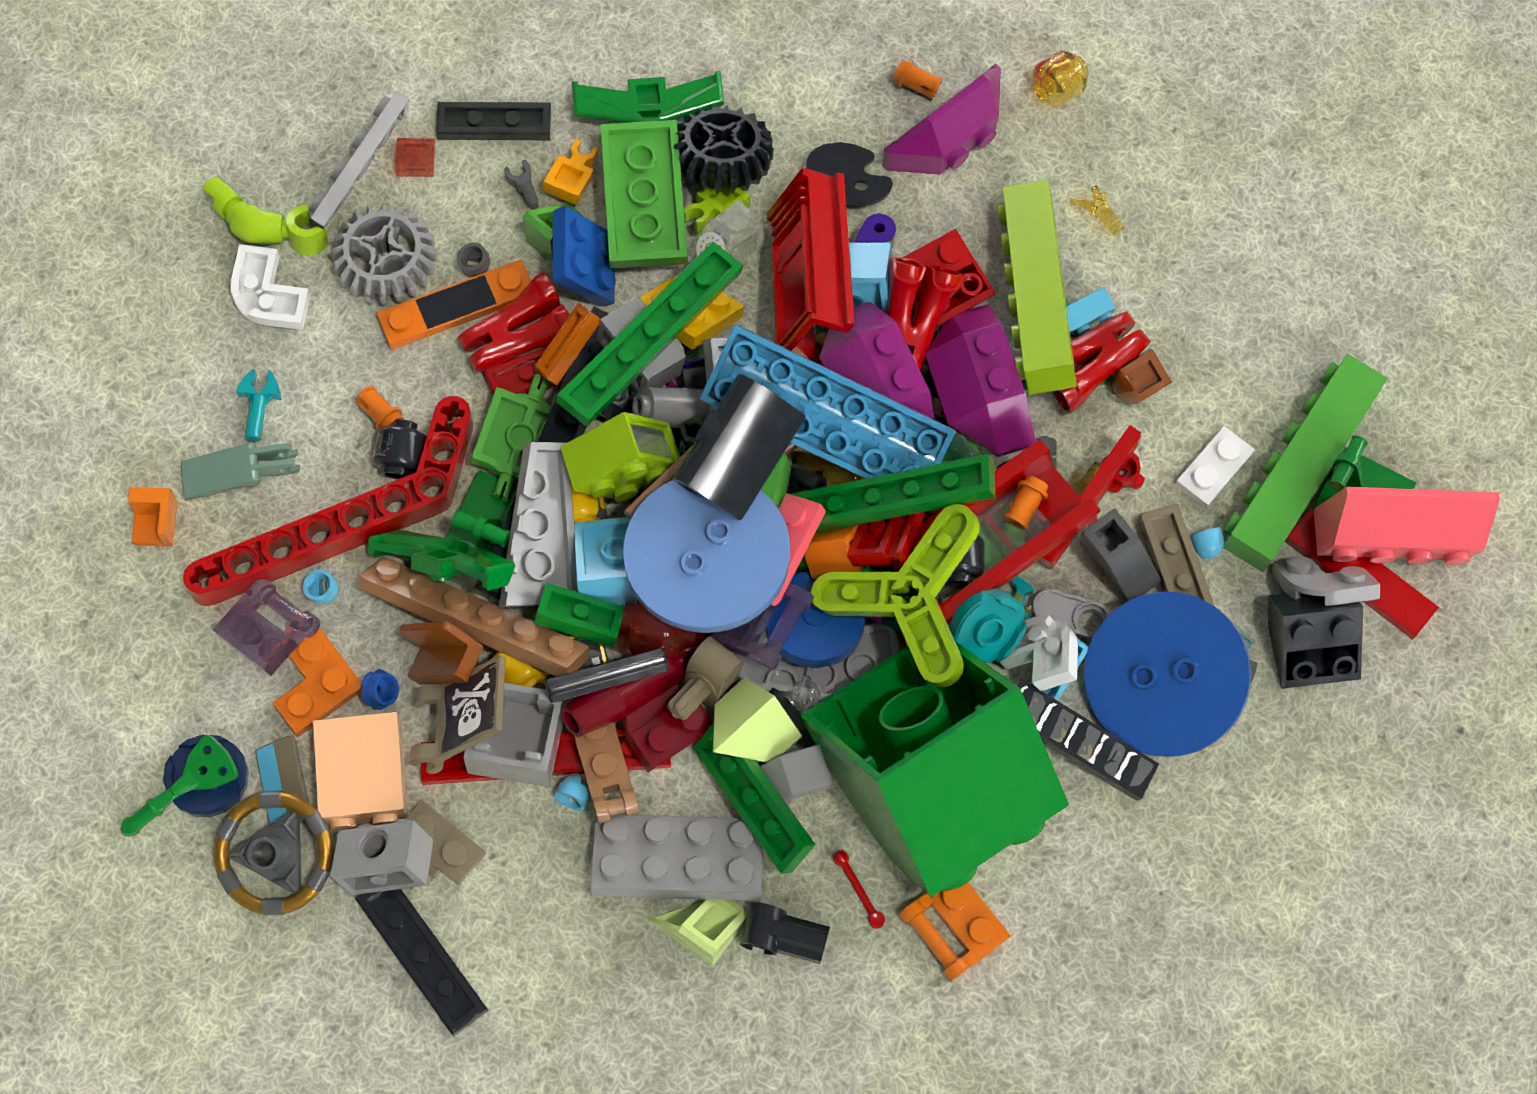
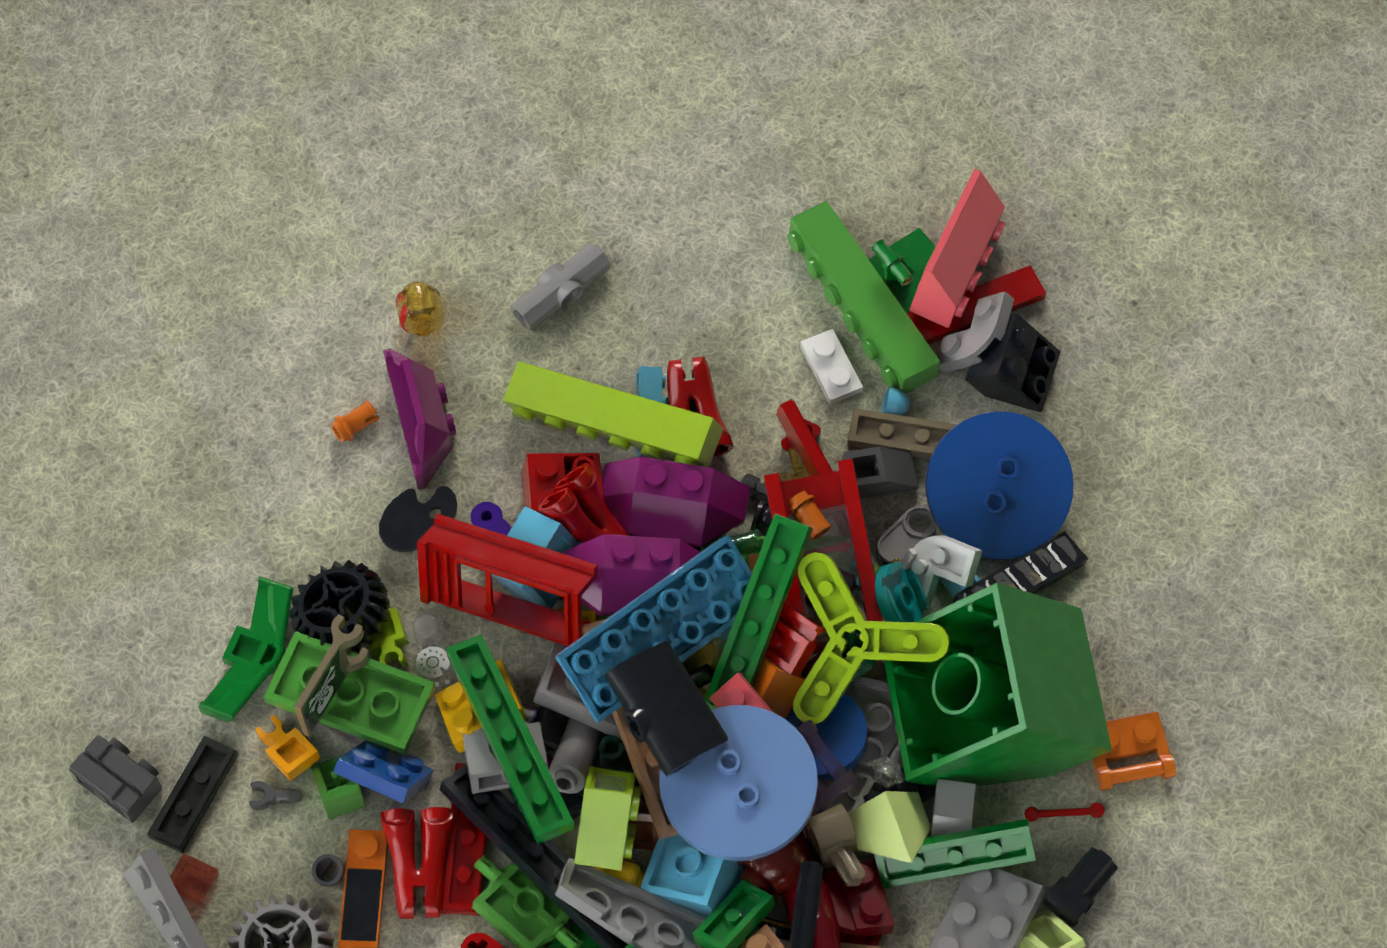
camera: 60 degrees left, 5 degrees down
(475, 51) = (116, 777): none -> dark grey brick
(567, 343) = (466, 819): orange tile -> none
(634, 157) = (330, 675): none -> dark tan flag
(1101, 209) = (556, 338): clear yellow bar -> none
(1139, 378) = (729, 382): dark orange plate -> none
(1156, 187) = (560, 286): none -> light grey piece

